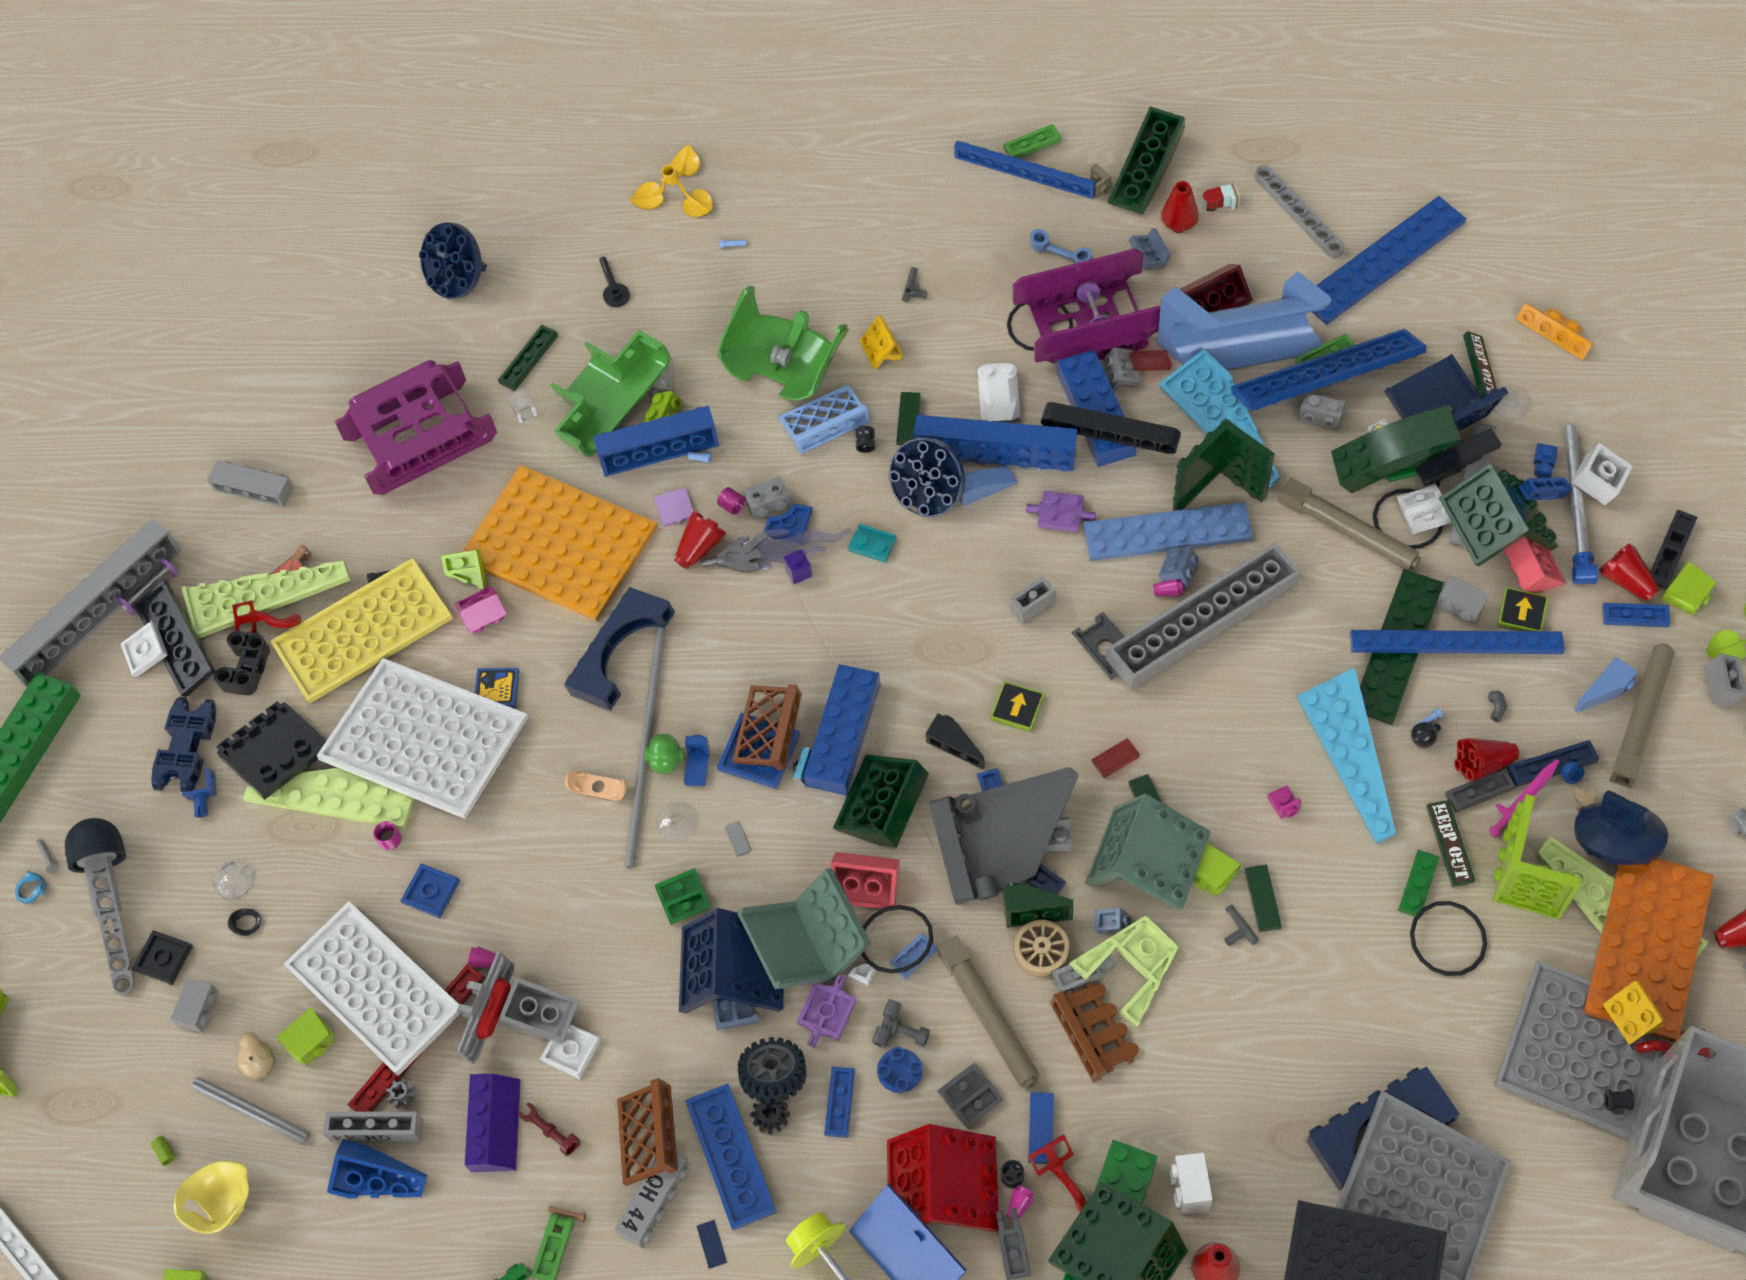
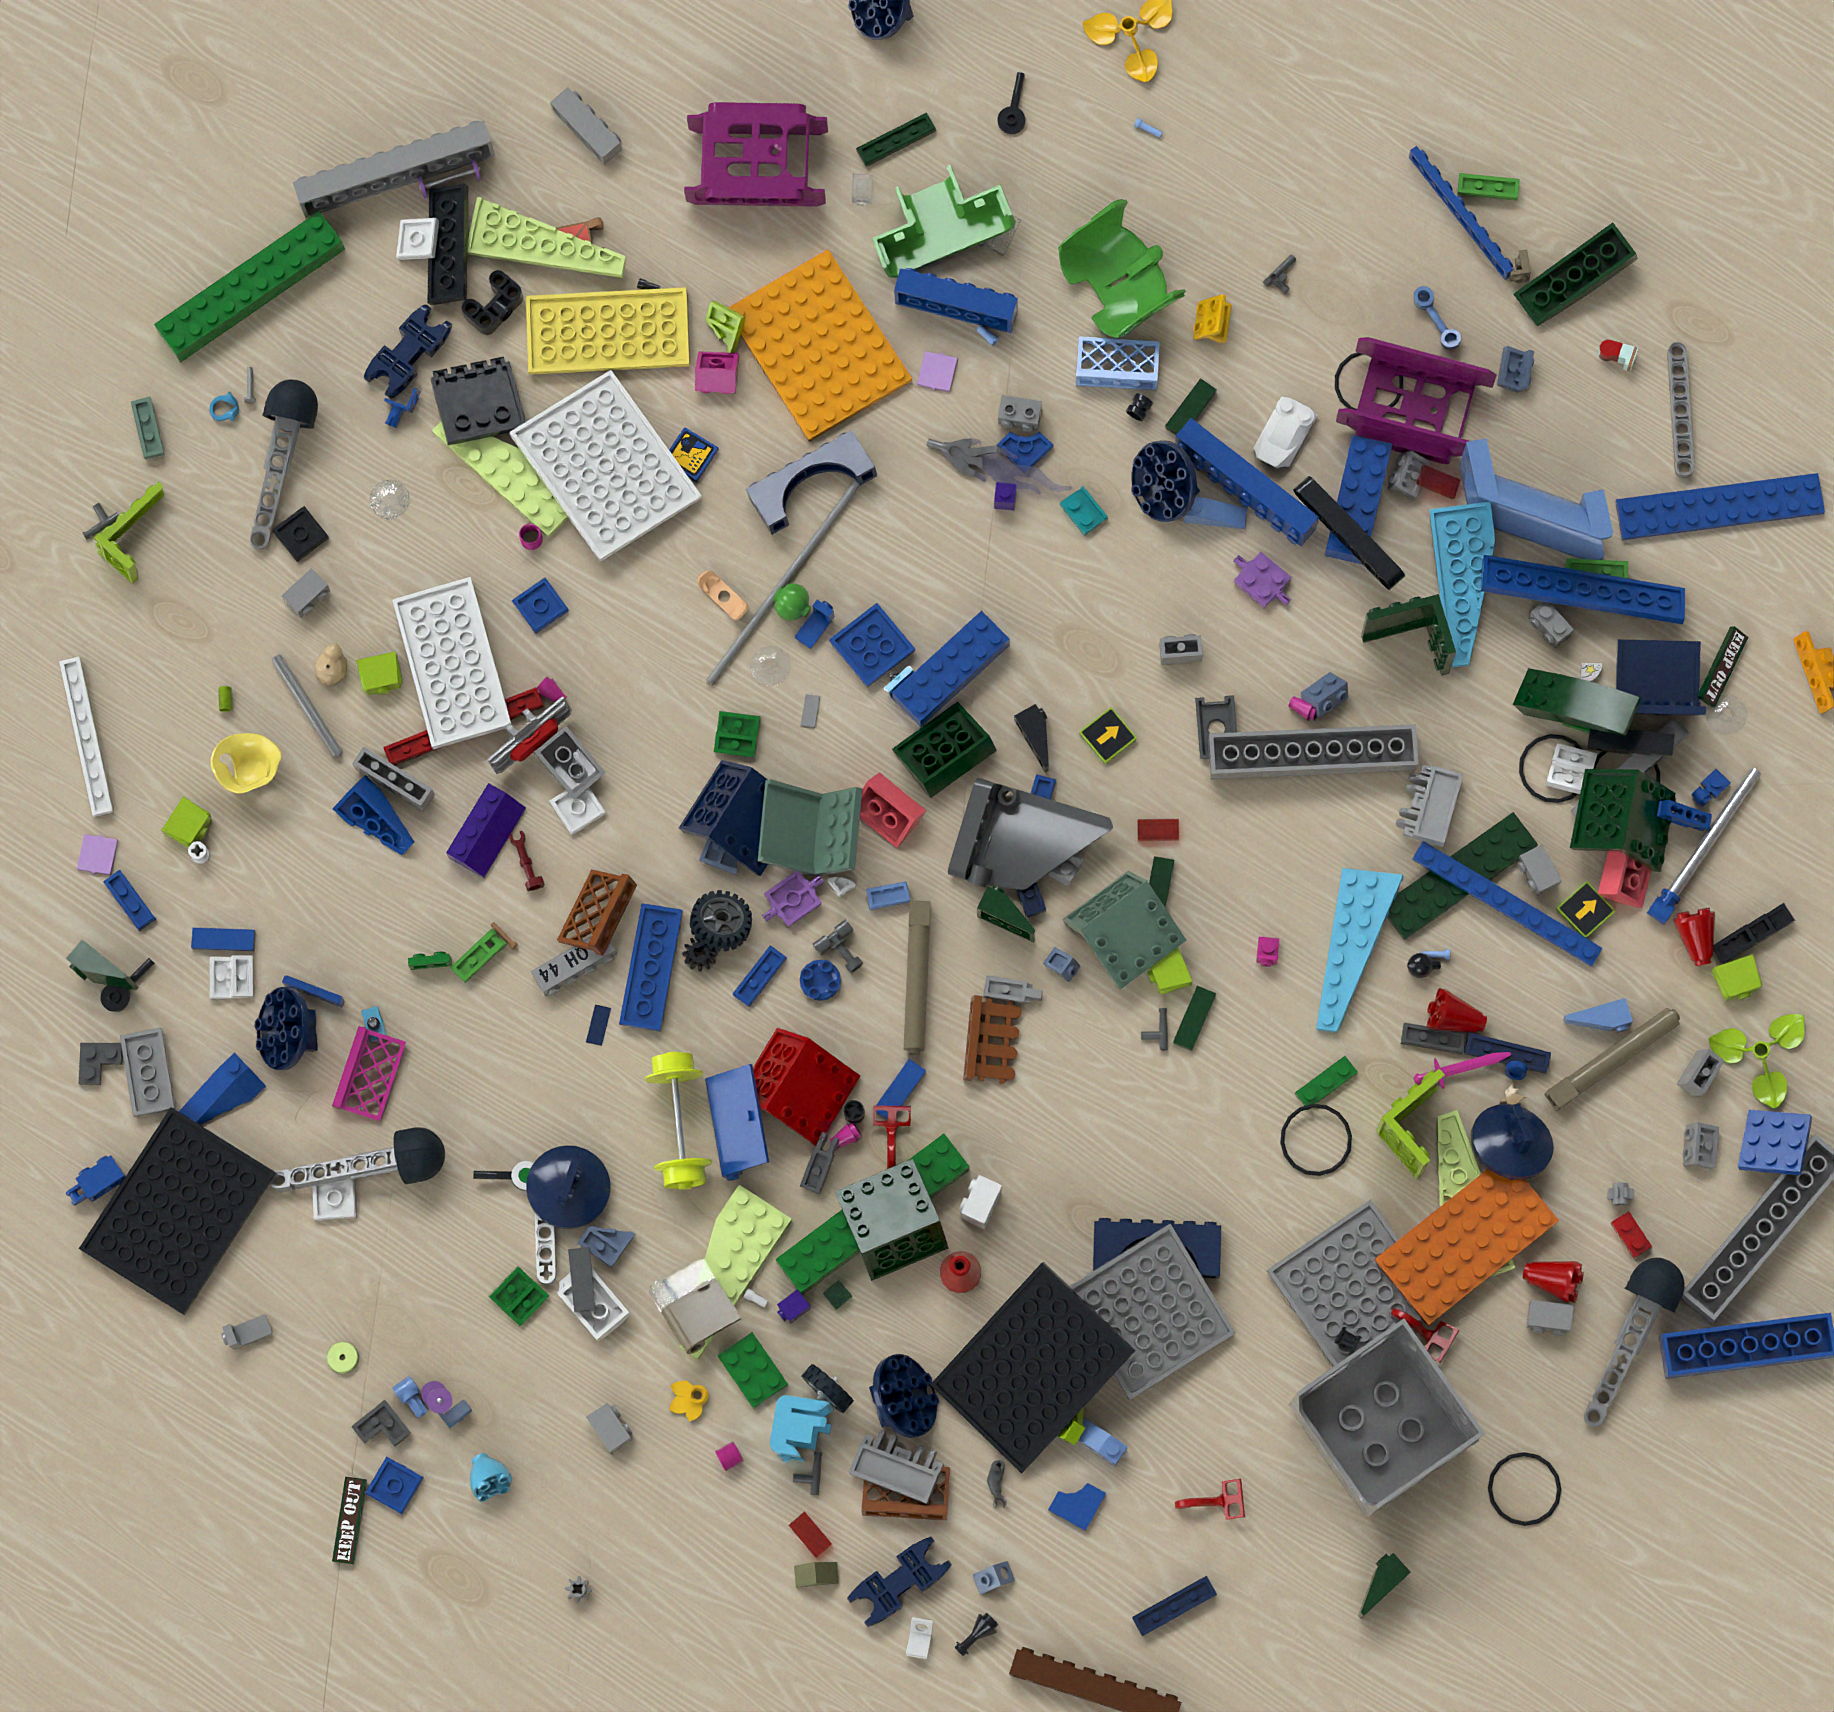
camera: 30 degrees right, 15 degrees up
(237, 915) = (376, 533): black piece -> none
(255, 616) = (525, 265): red piece -> none
(398, 1088) = (430, 759): light grey gear -> none
(663, 405) = (982, 269): lime bracket -> none
(697, 539) = (935, 419): red cone -> none
(731, 500) = (987, 397): dark pink piece -> none
(781, 356) = (1116, 278): light grey wheel -> none
(784, 731) = (905, 636): dark orange fence -> none
(920, 959) = (892, 901): black piece -> none
(970, 1095) = (861, 1032): dark grey slope -> none
(1041, 947) = (992, 950): tan wheel -> none
(1088, 293) = (1428, 381): medium lavender axle -> none
(1145, 949) = (1072, 1004): yellowish green wing -> none
(1167, 530) = (1341, 654): medium blue plate -> none
(1180, 208) = (1570, 346): red cone -> none
(1220, 289) = (1534, 450): dark red slope -> none
(1300, 498) = (1475, 698): dark tan brick -> none
(1335, 599) = (1433, 803): none -> light grey hinge
(1450, 843) = (1375, 1066): tile -> none
(1499, 701) = (1503, 979): dark grey arm -> none
(1602, 474) = (1742, 832): white brick -> none
(1634, 1012) = (1405, 1284): yellow bracket -> none
(1636, 614) = (1677, 971): blue tile -> none

